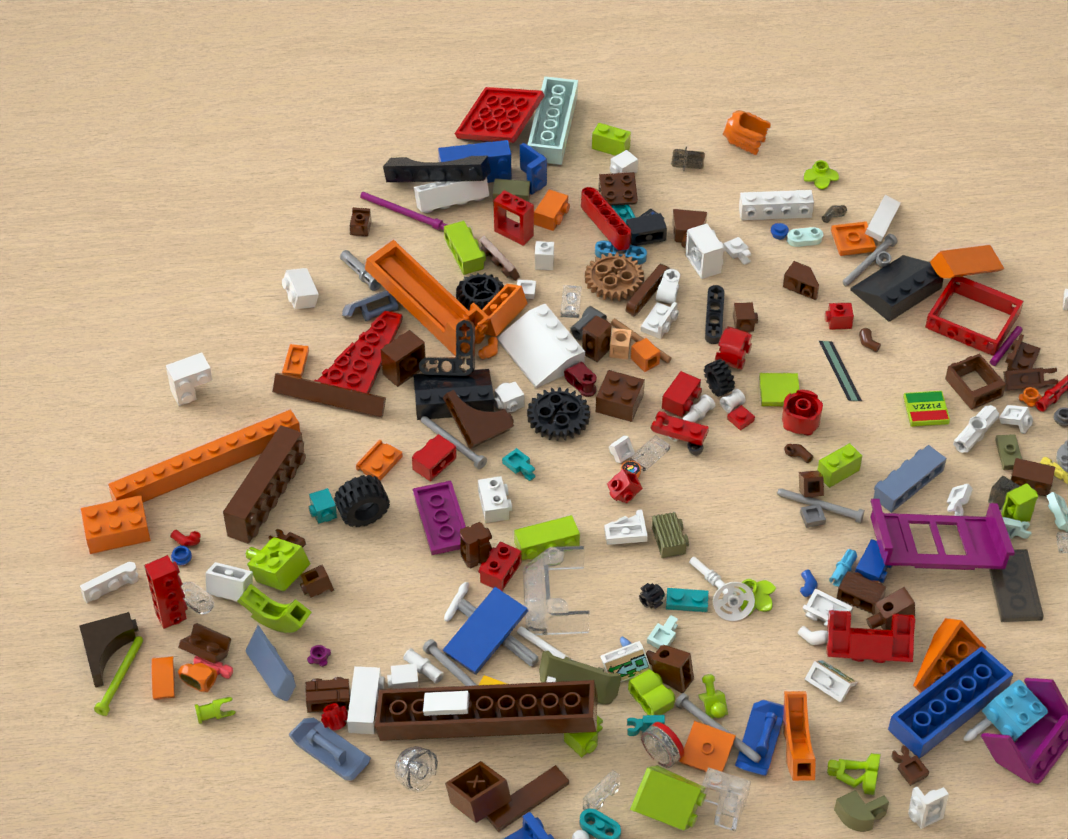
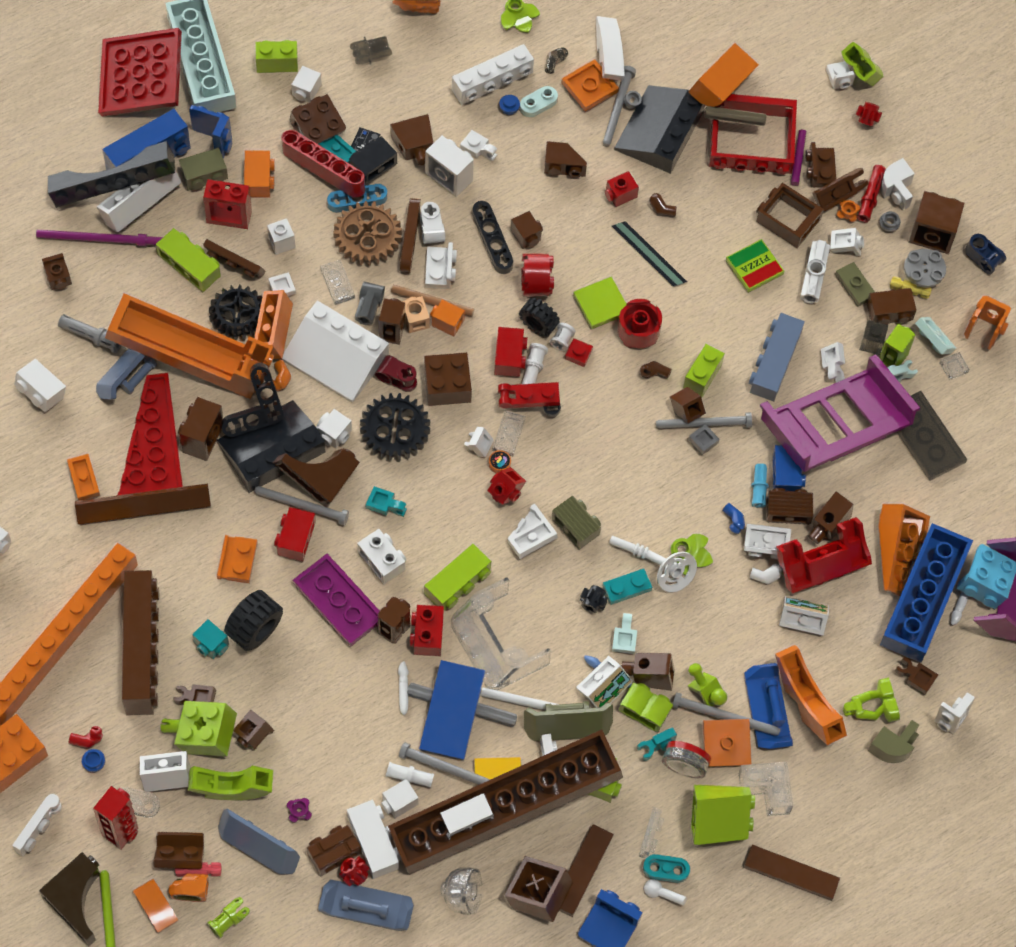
camera: 30 degrees left, 15 degrees up
(963, 293) = (735, 115): none -> dark tan axle

